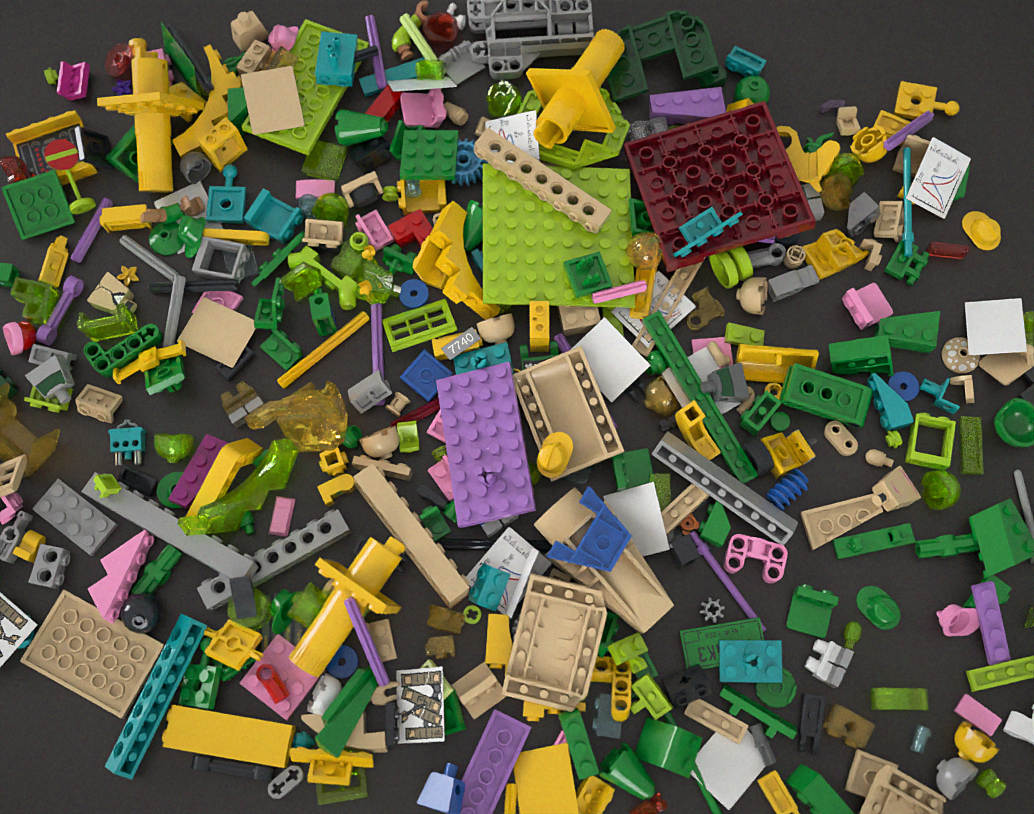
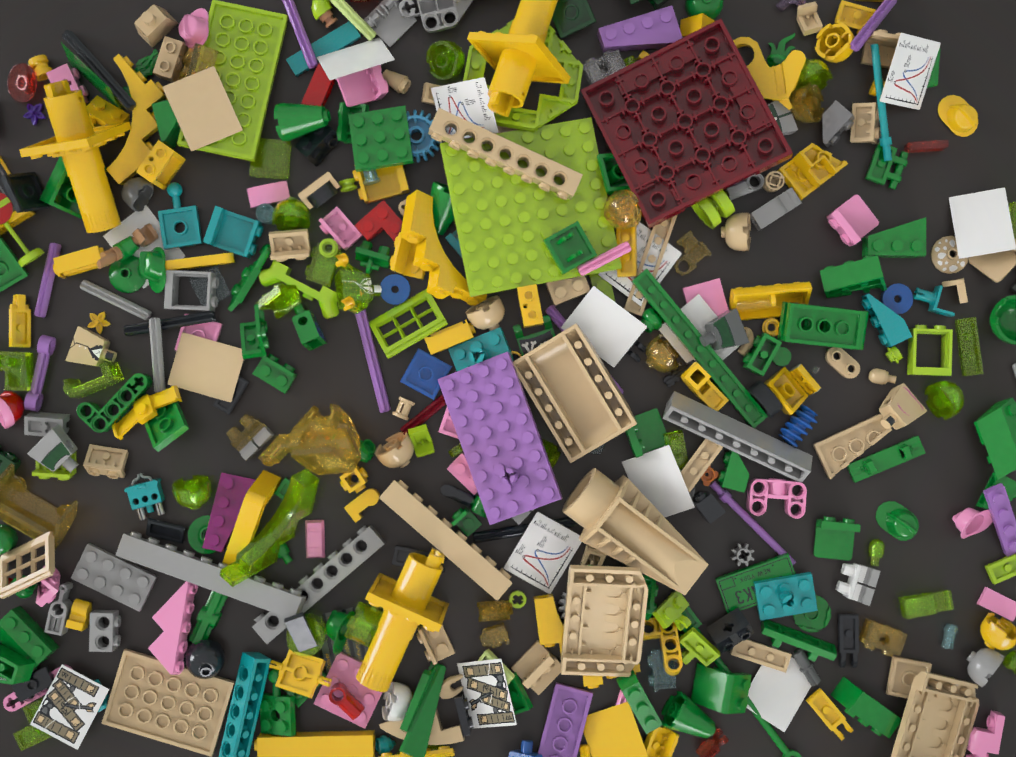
camera: 15 degrees left, 15 degrees up
(106, 484) = (139, 547): lime tile -> none
(323, 349) = (317, 364): yellow axle -> none
(338, 58) = (260, 44): teal piece -> none
(349, 668) = (412, 671): blue piece -> none
(366, 641) = (426, 651): medium lavender axle -> none
(369, 391) = (373, 402): light grey hinge -> none
(398, 471) = (402, 474): tan plate -> none
(430, 69) = (360, 37): clear neon green bracket -> none
(461, 343) = (454, 337): light grey sticker -> none
(488, 587) = (528, 572): teal bracket -> none
(521, 582) = (561, 567): white sticker -> none
(554, 454) = (569, 437): yellow piece -> none
(602, 541) = (632, 527): blue wing -> none
(701, 227) = (679, 181): teal bracket -> none
(720, 359) = (716, 306): tan arm -> none
(740, 334) = (734, 275): lime plate -> none
(874, 249) = (853, 167): tan bracket -> none
(946, 546) = (954, 452): green piece -> none

